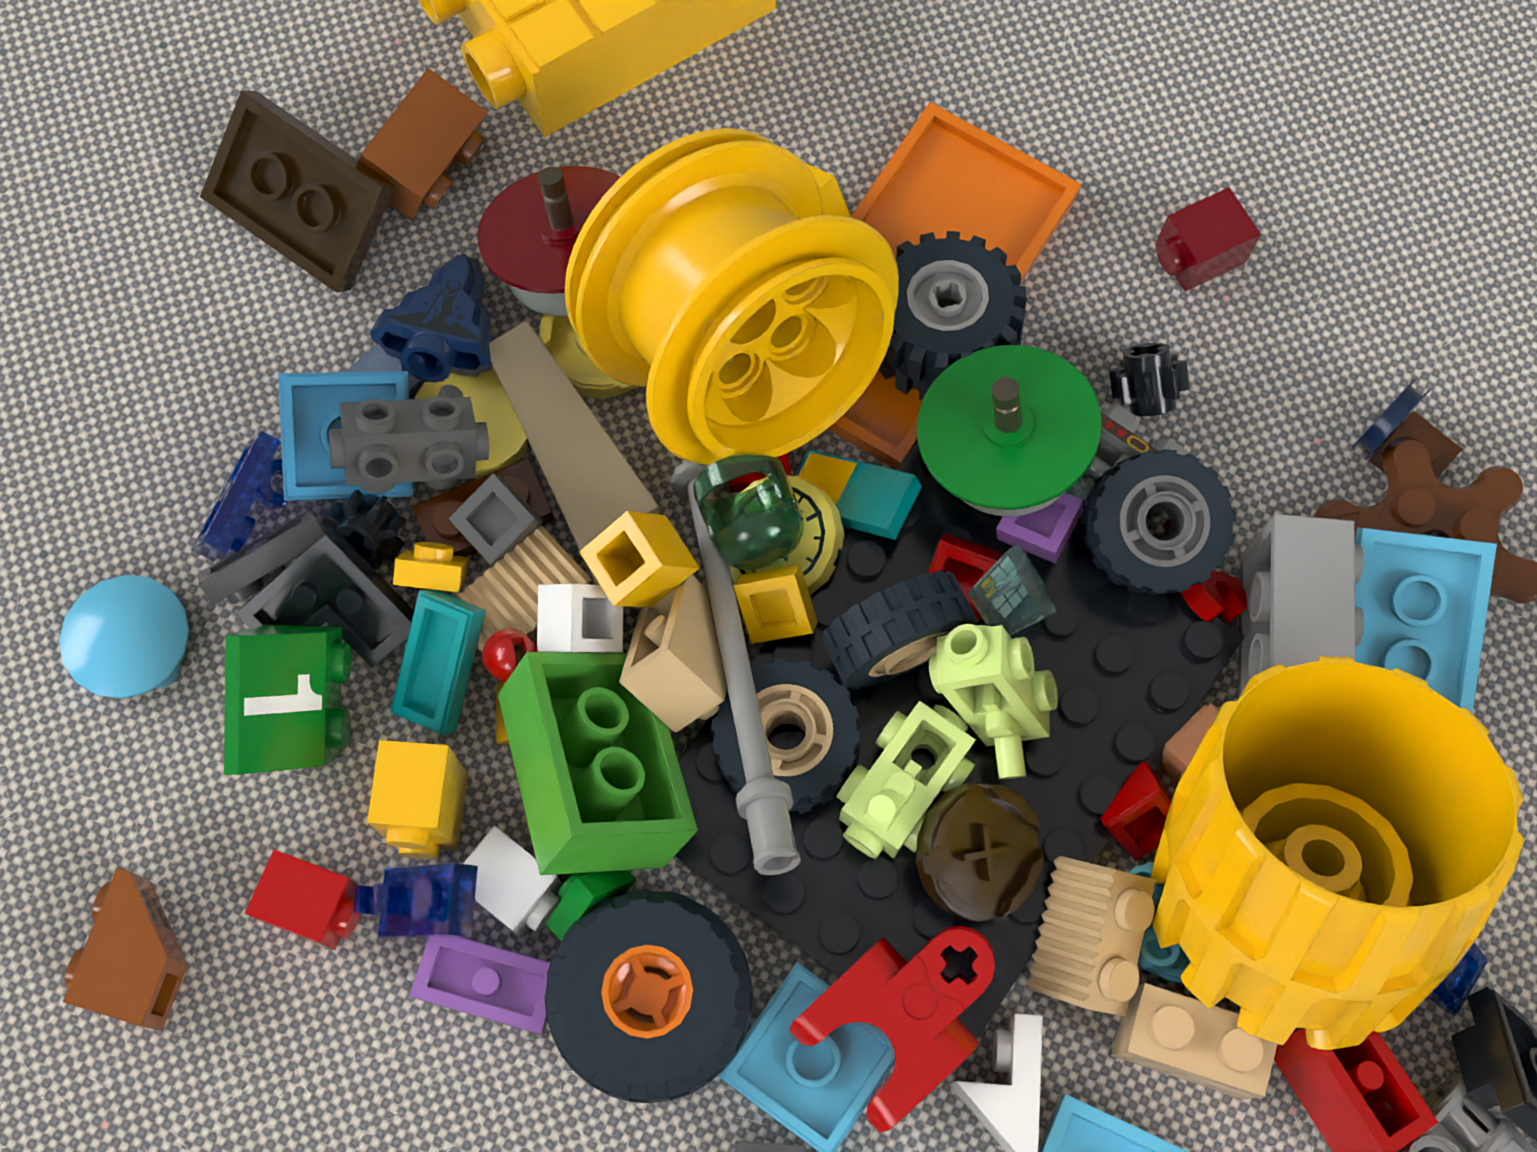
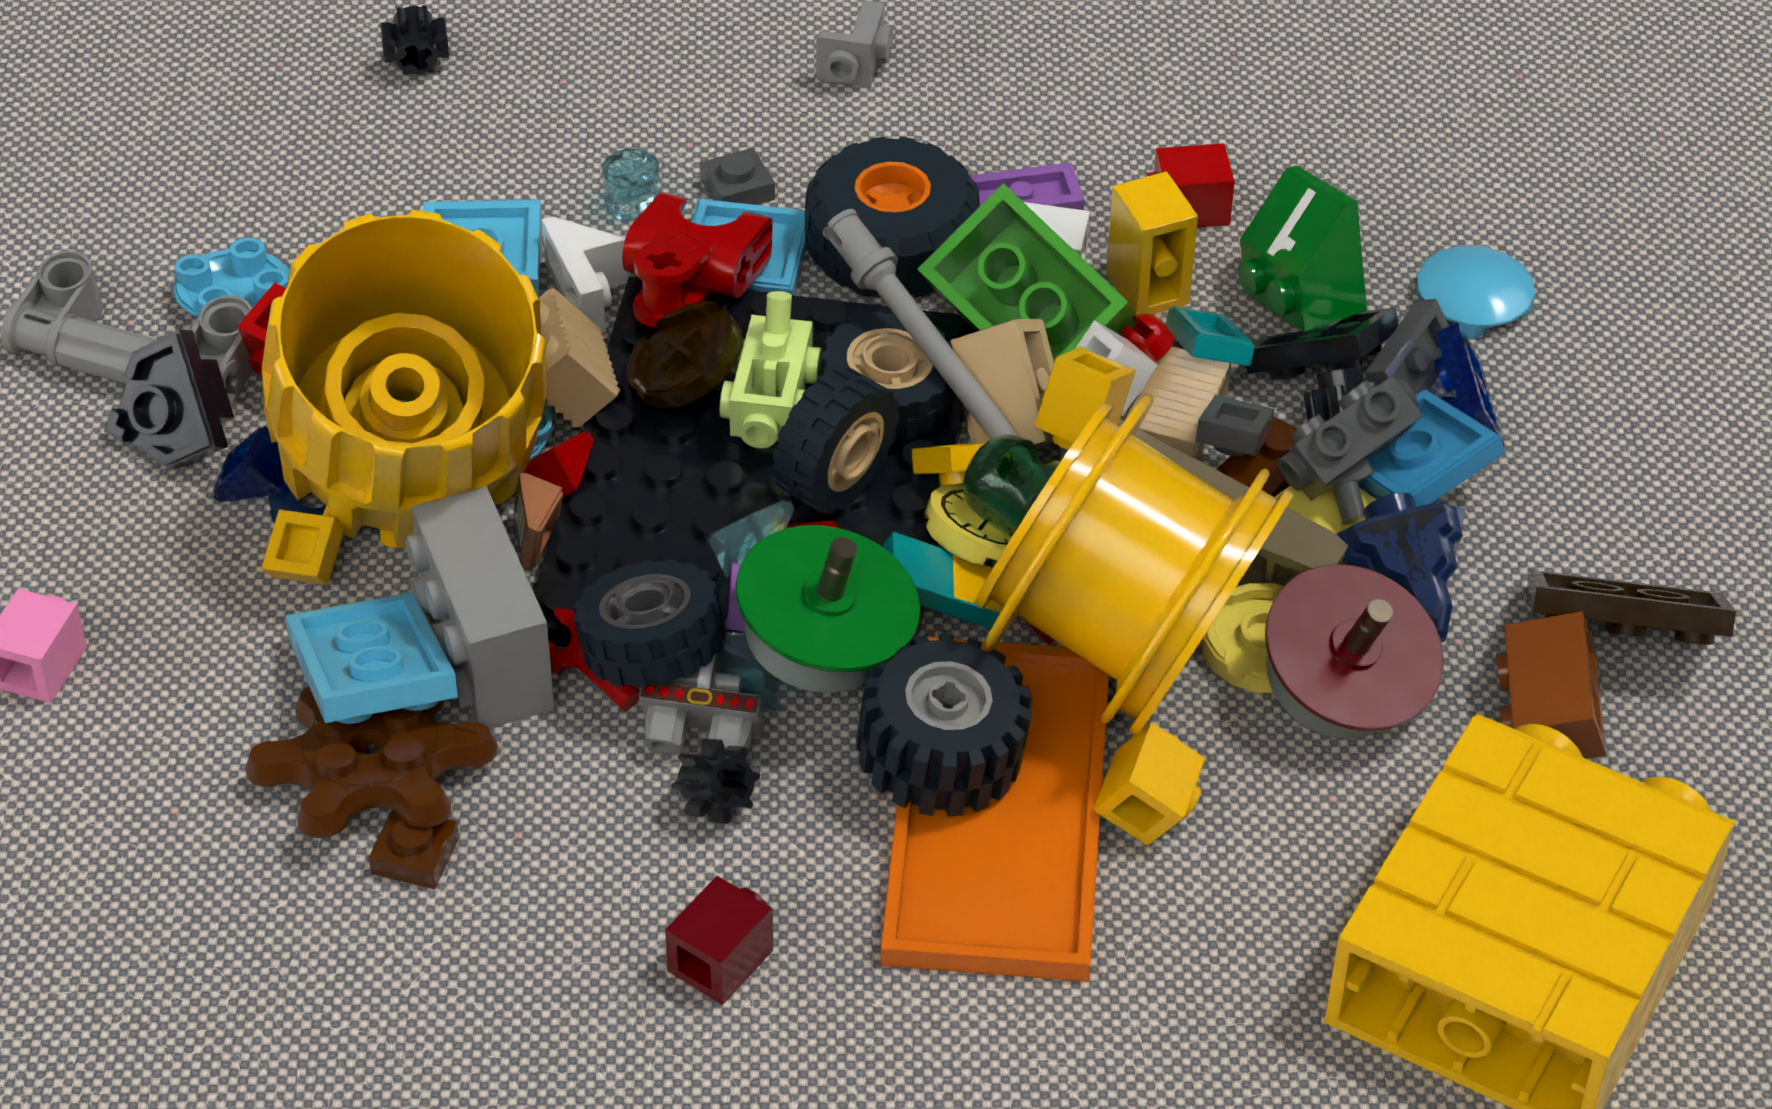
camera: 155 degrees right, 25 degrees down
(130, 957) = (1291, 117): dark orange slope -> none
(422, 901) = (1086, 183): clear blue plate -> none
(431, 567) = (1265, 380): yellow plate -> none
(995, 690) = (730, 427): yellowish green brick -> none
(1390, 418) = (455, 831): dark blue piece -> none

